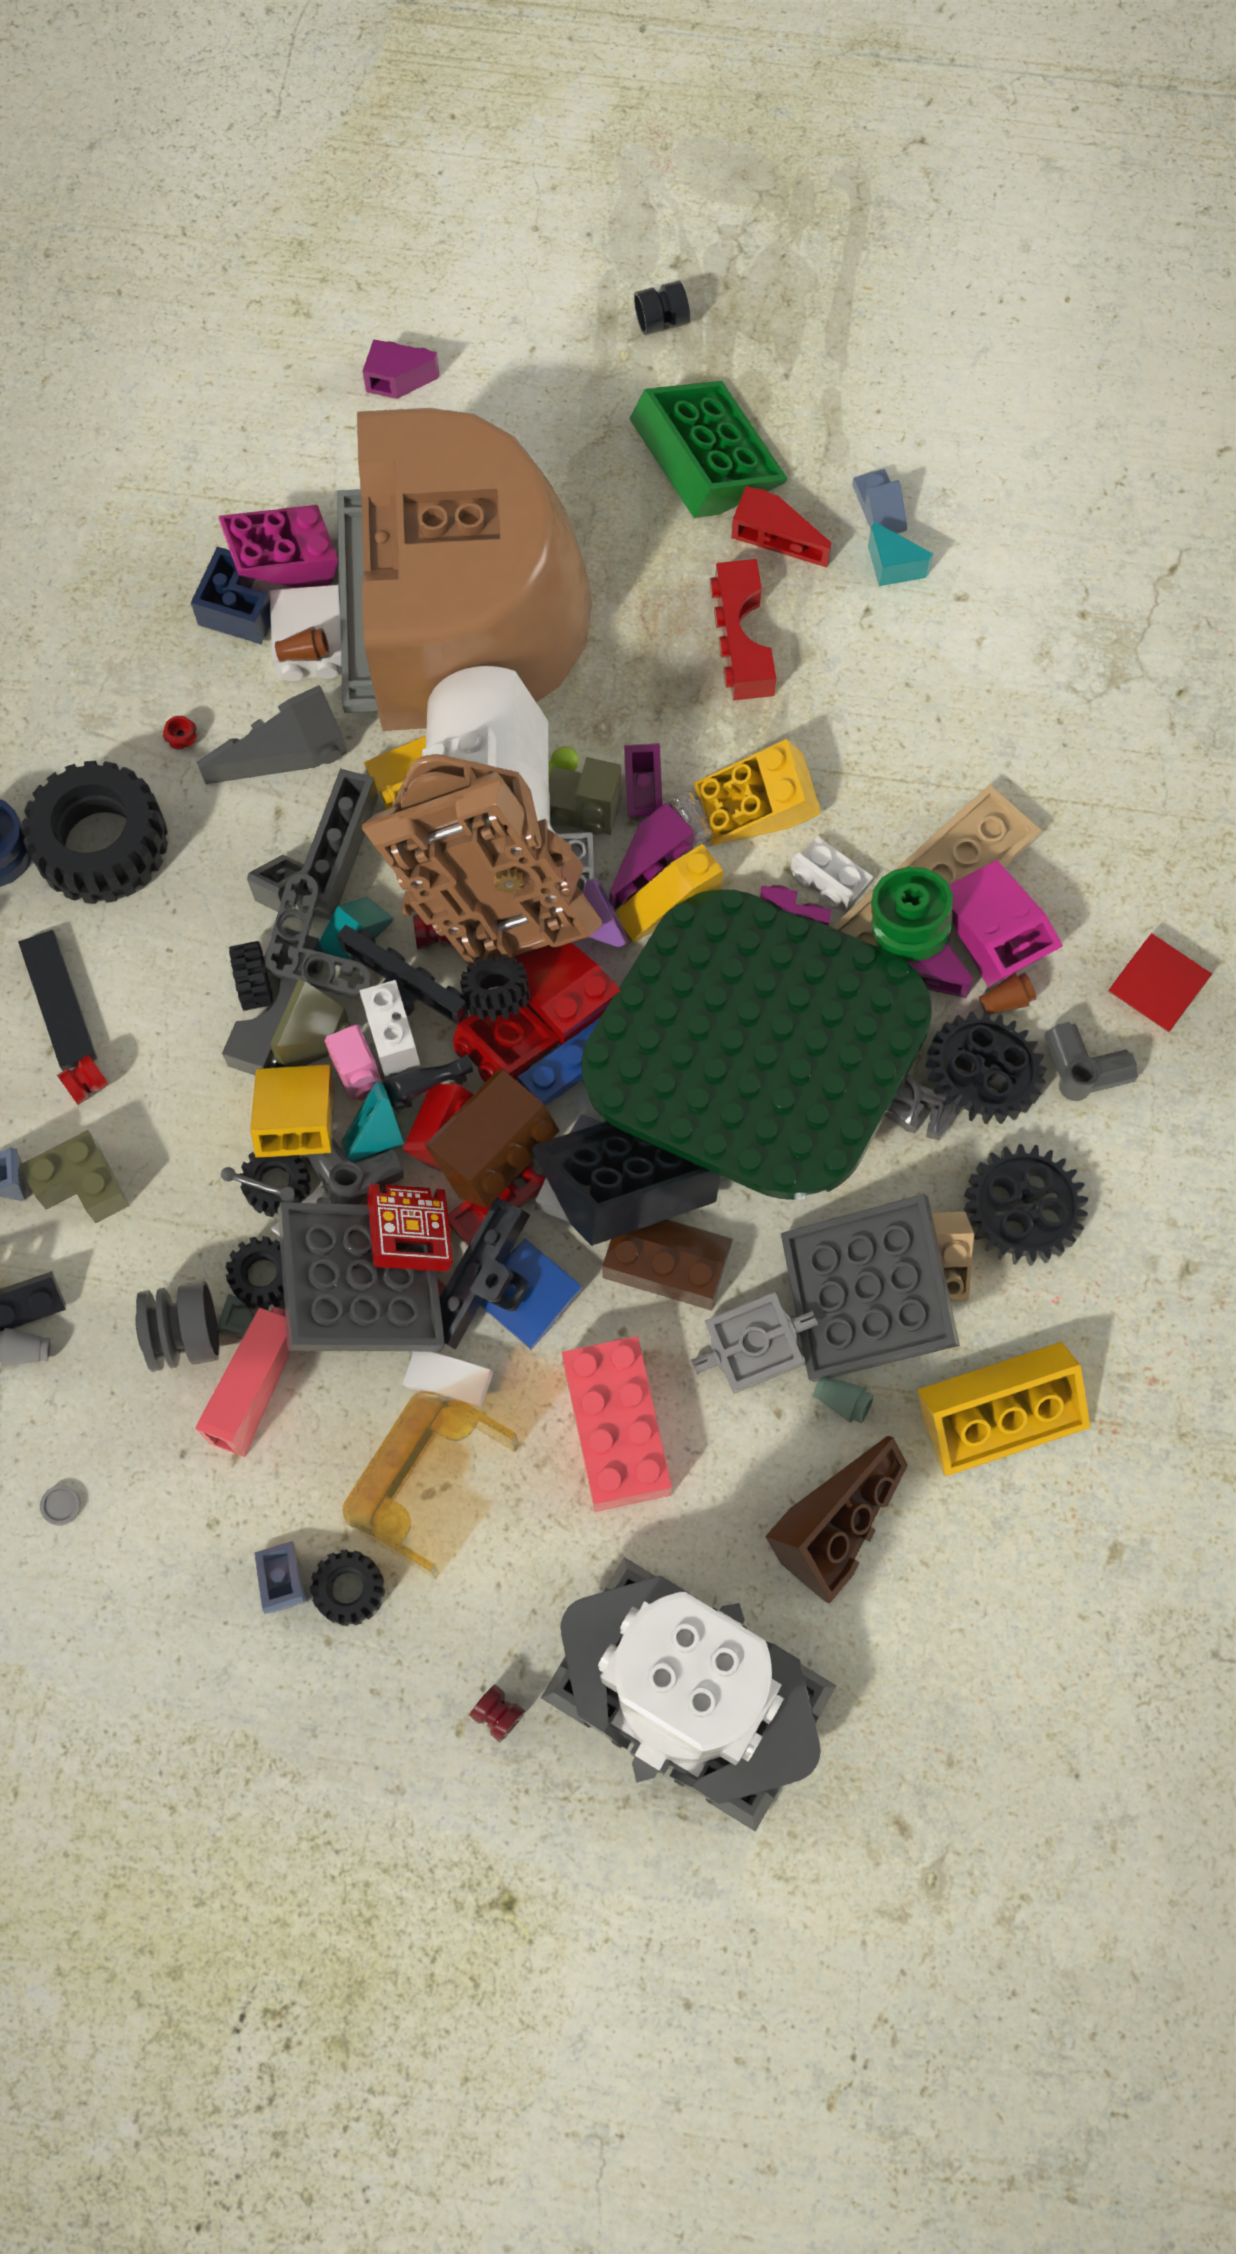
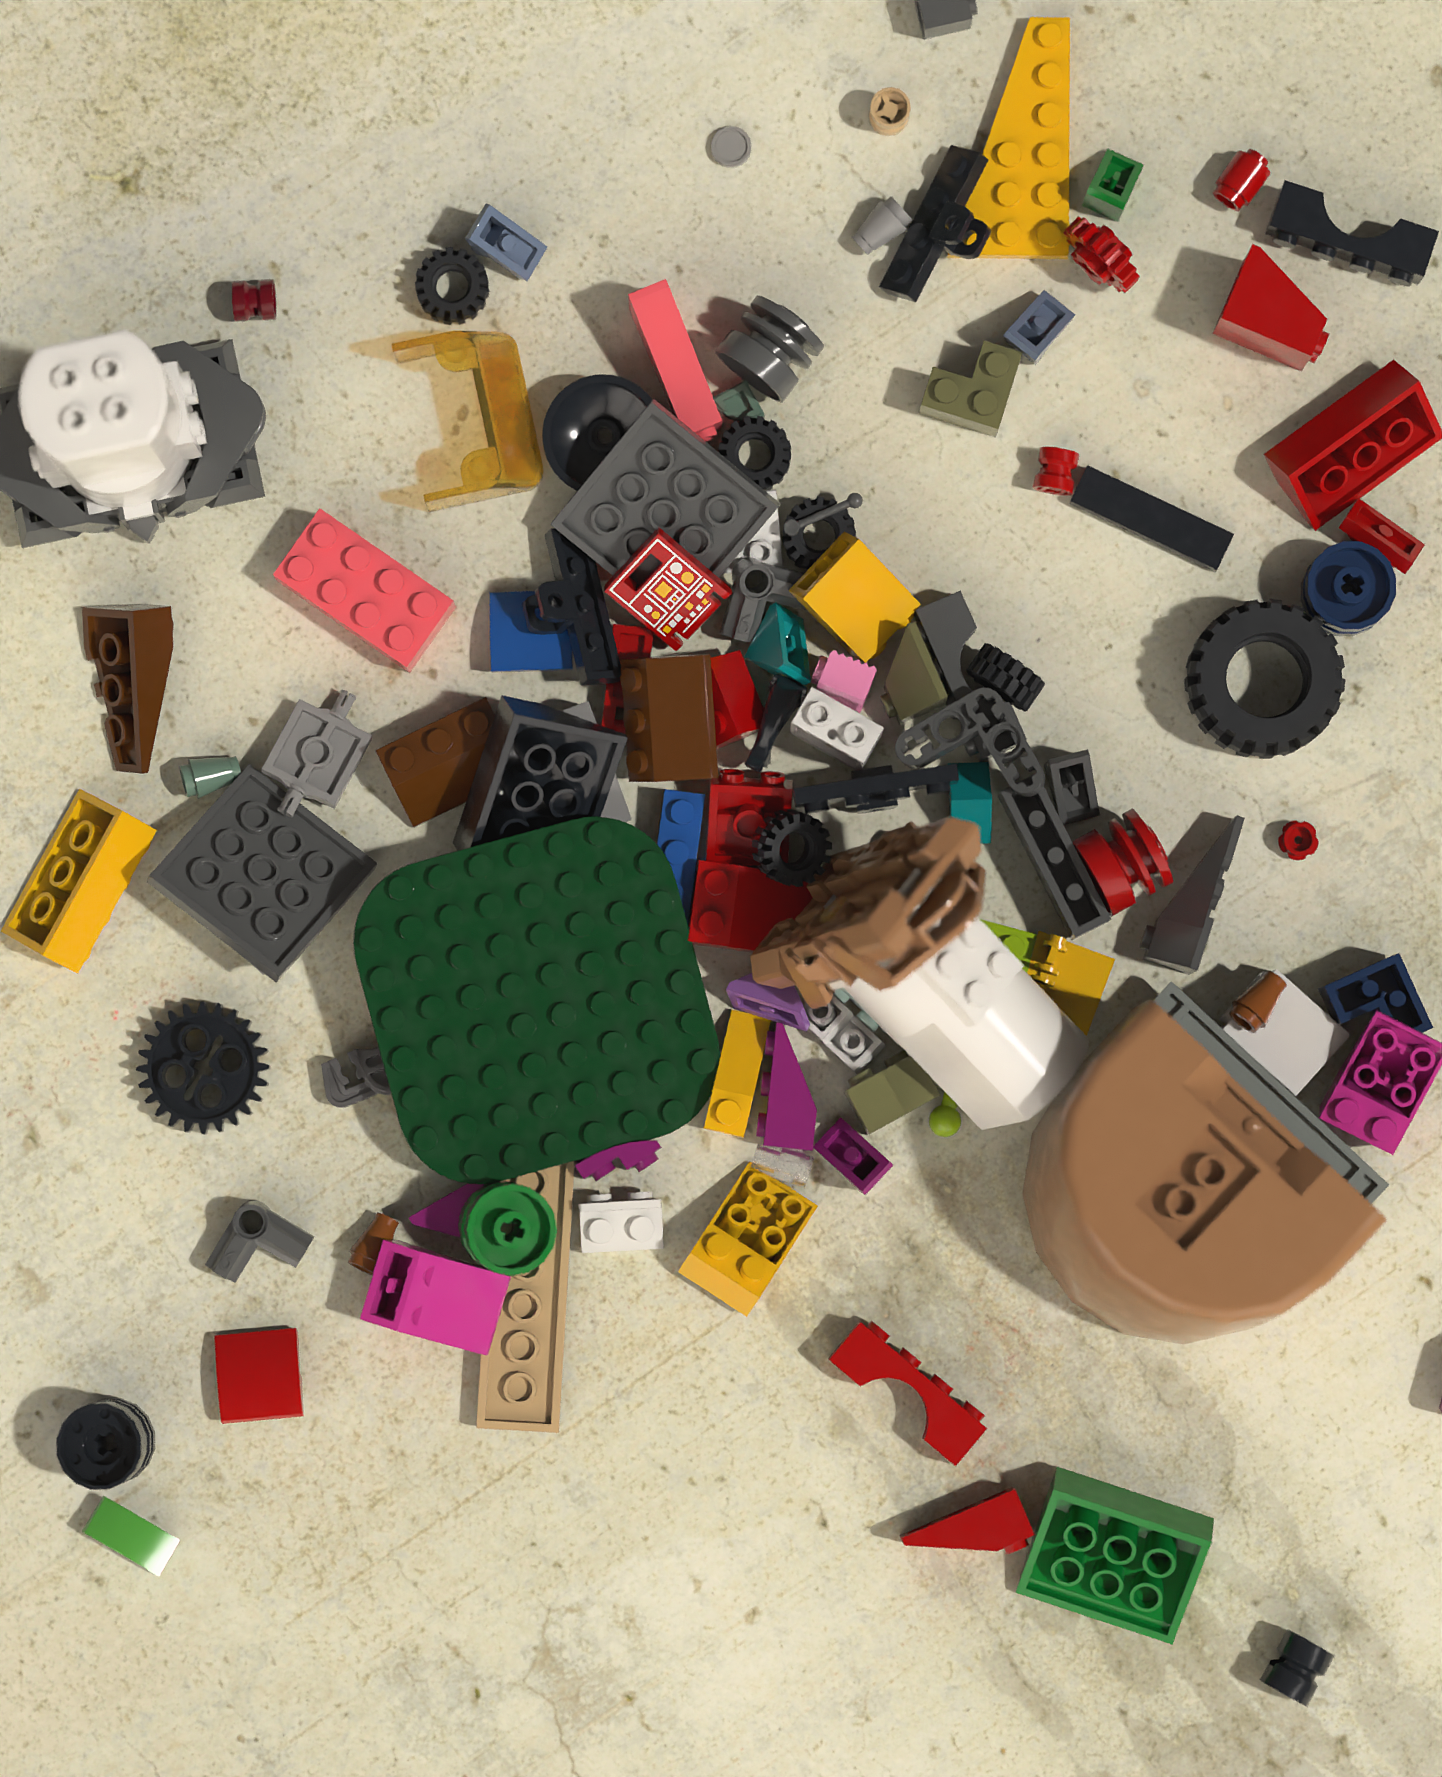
camera: 135 degrees right, 15 degrees up
(293, 798) = (1124, 861): none -> red wheel
(377, 1389) = (579, 414): none -> black dish
(448, 1377) = (526, 507): white slope -> none
(881, 500) = (909, 1644): sand blue slope -> none
(896, 557) = (841, 1592): teal slope -> none
(956, 1250) = (227, 970): tan slope -> none
(986, 1067) = (327, 1123): black gear -> none

